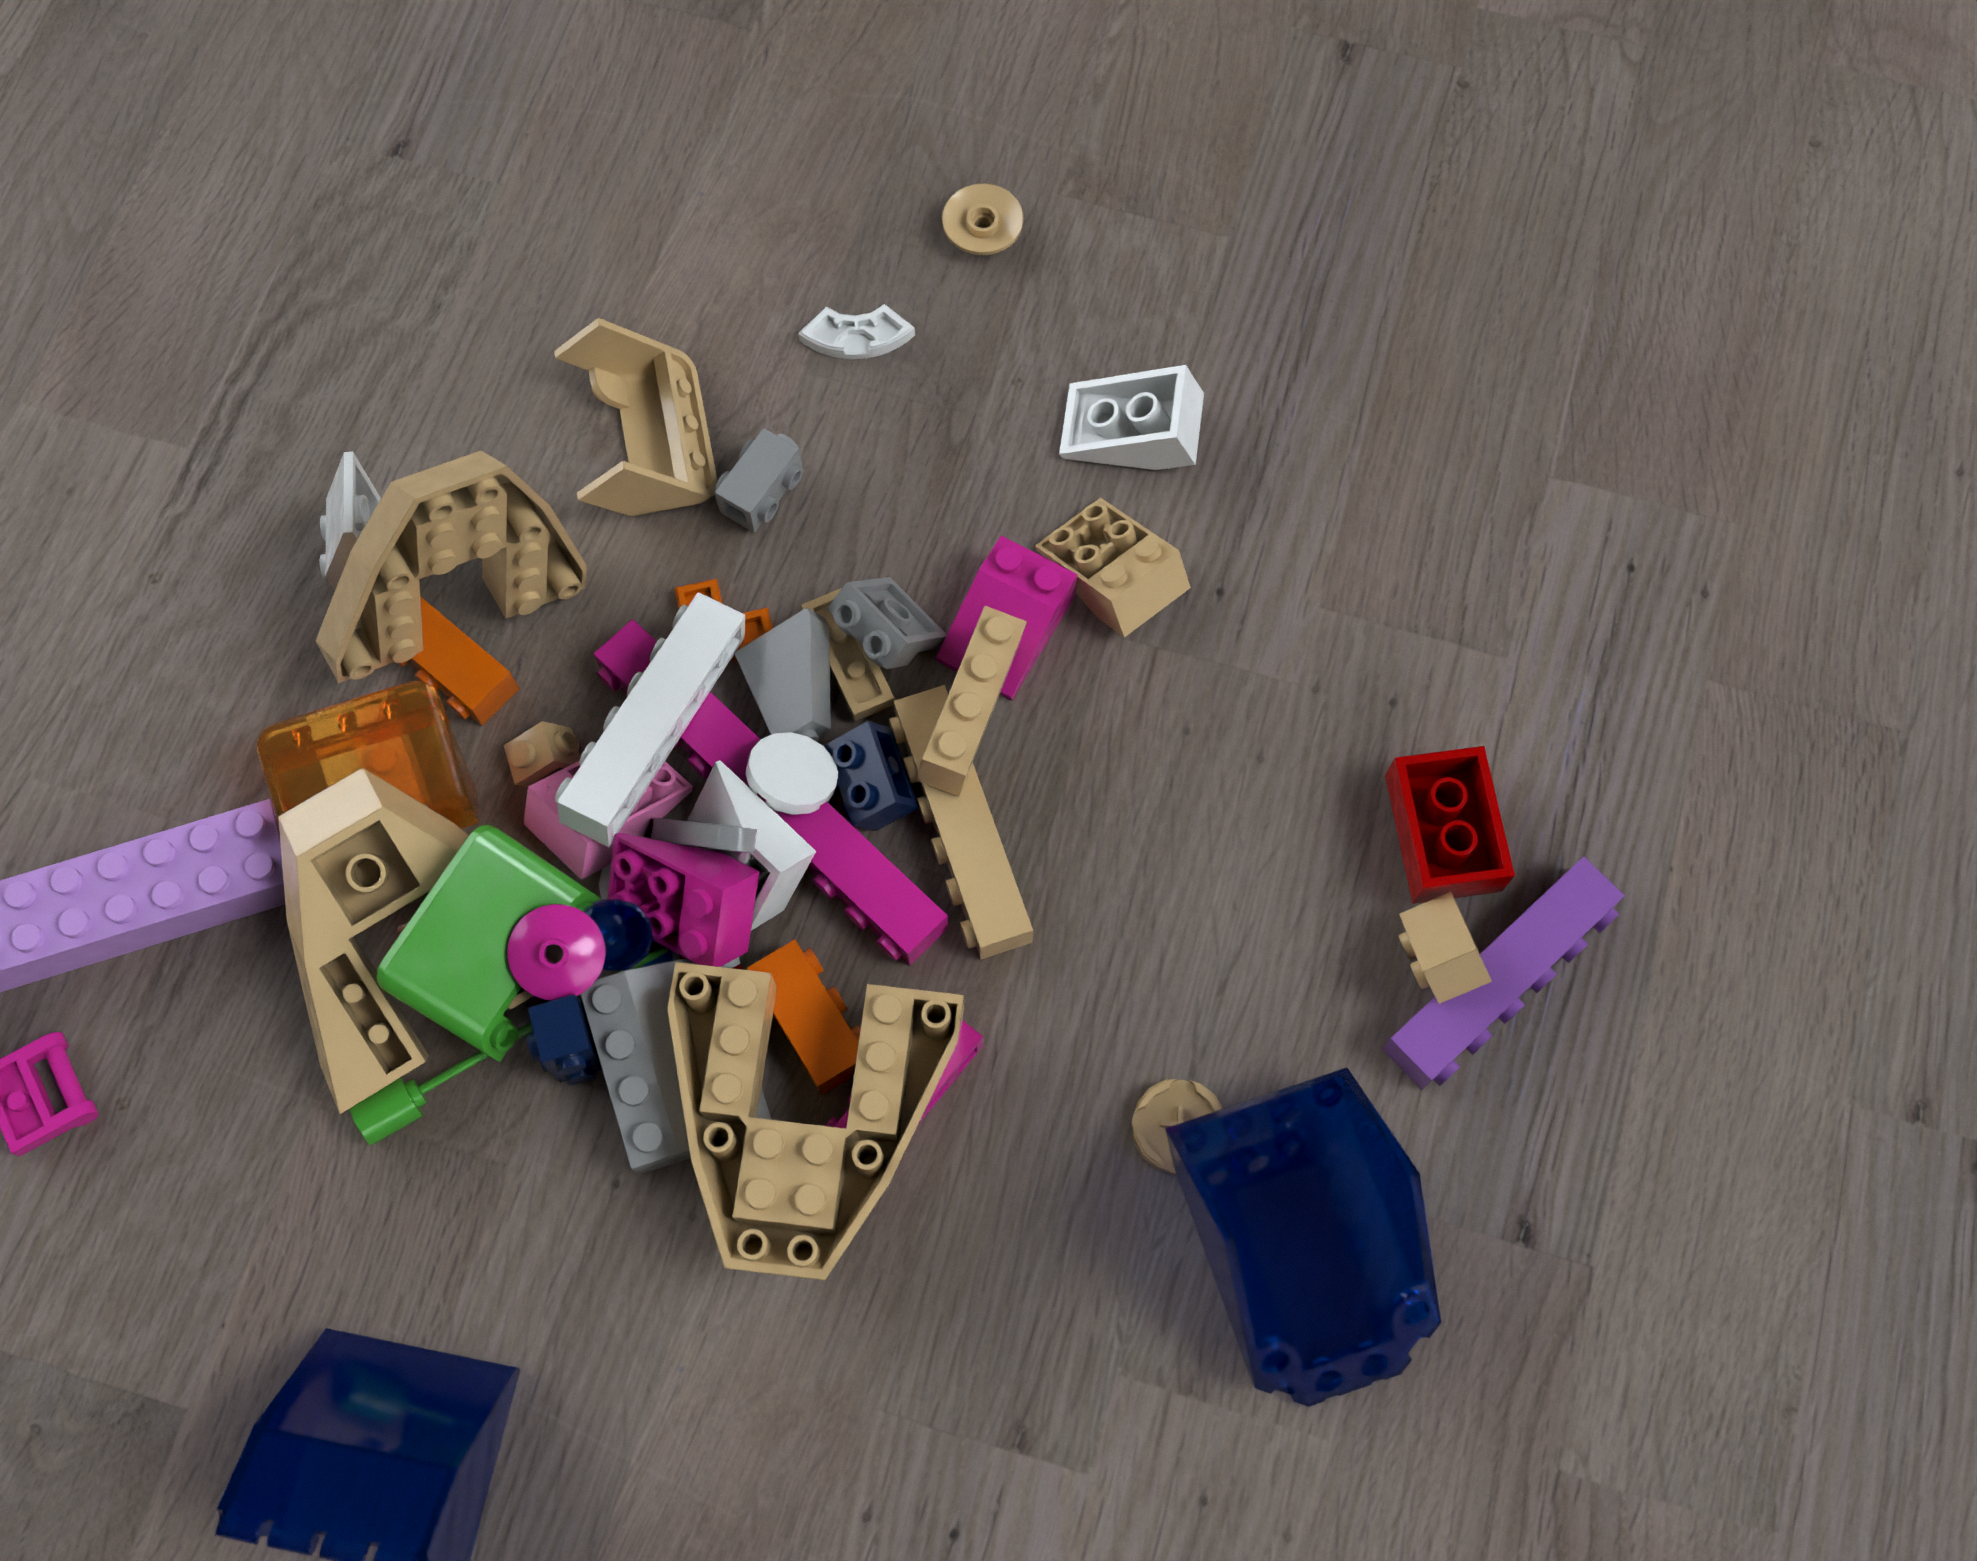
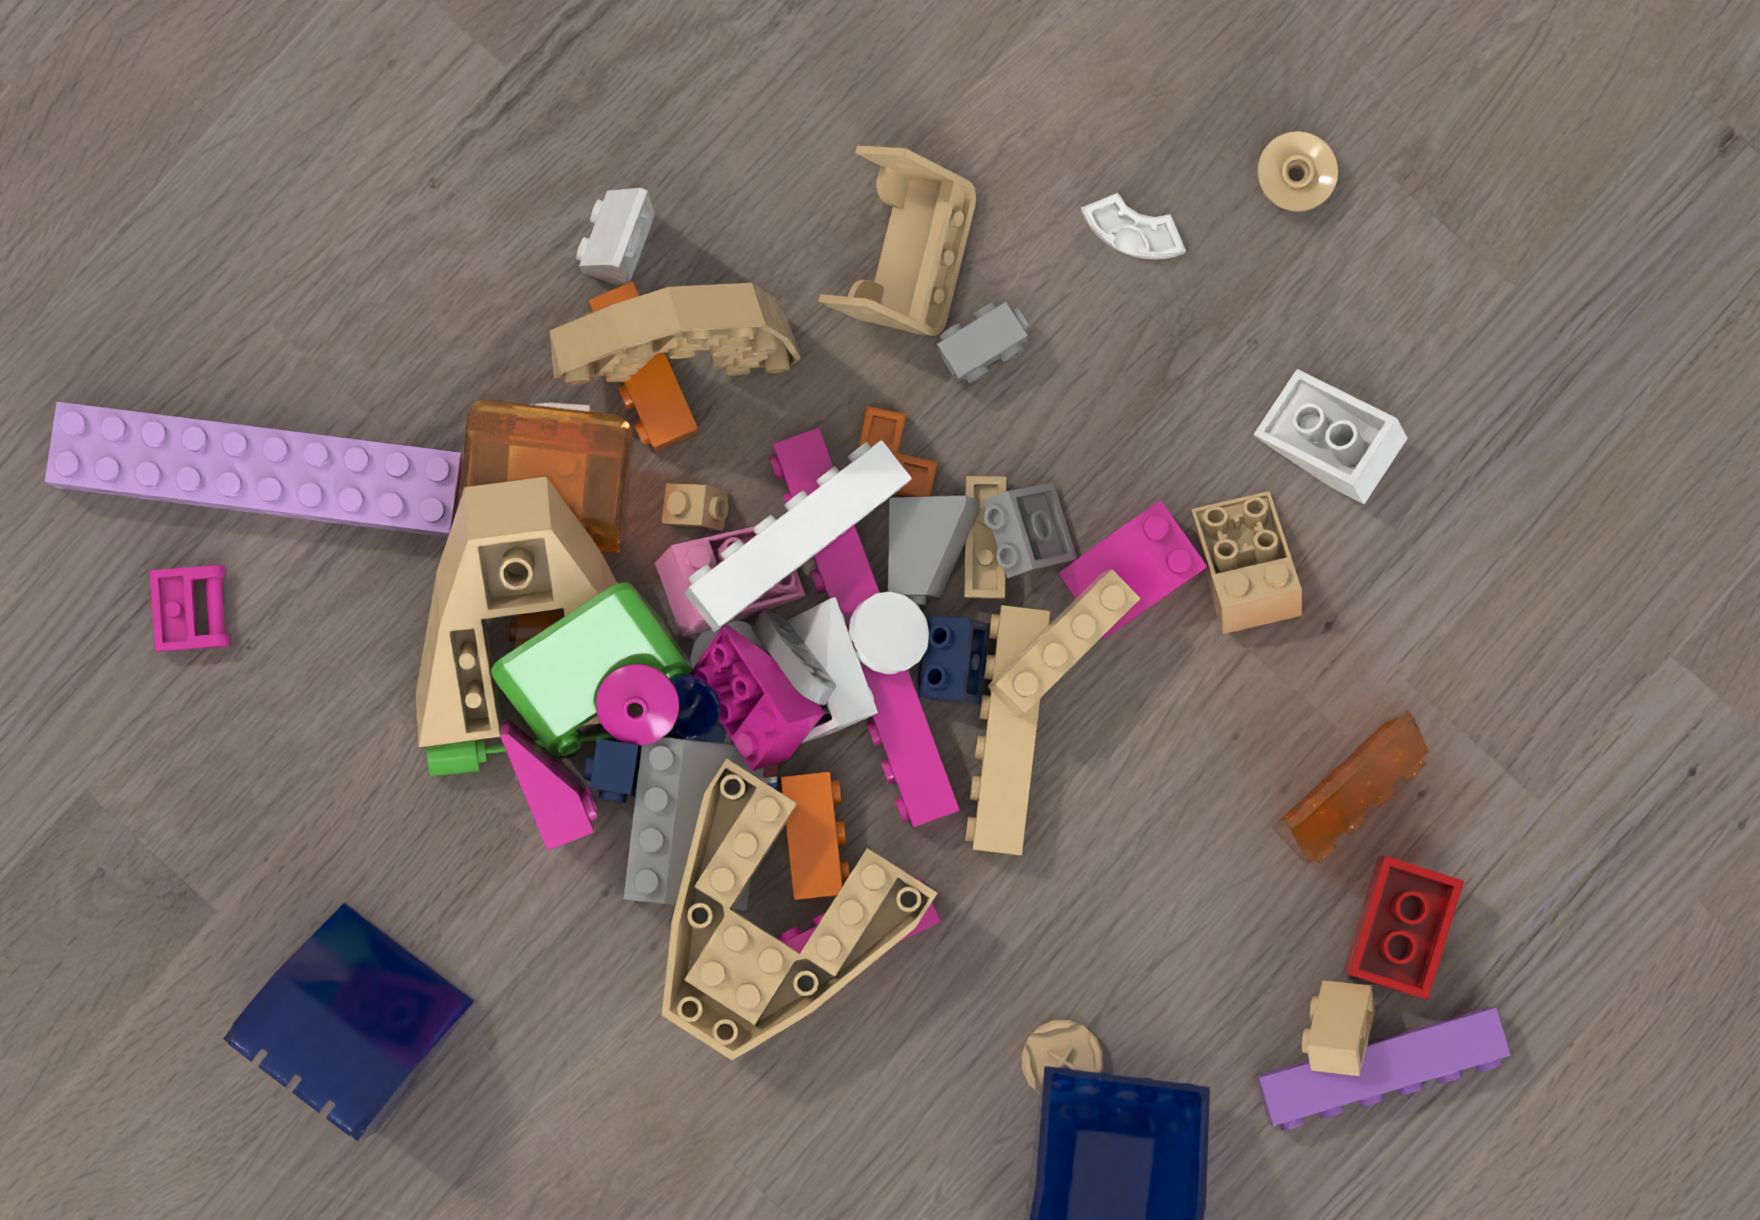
camera: 25 degrees right, 15 degrees up
(506, 1095) = (552, 792): none -> dark pink slope
(1328, 713) = (1353, 787): none -> clear orange slope

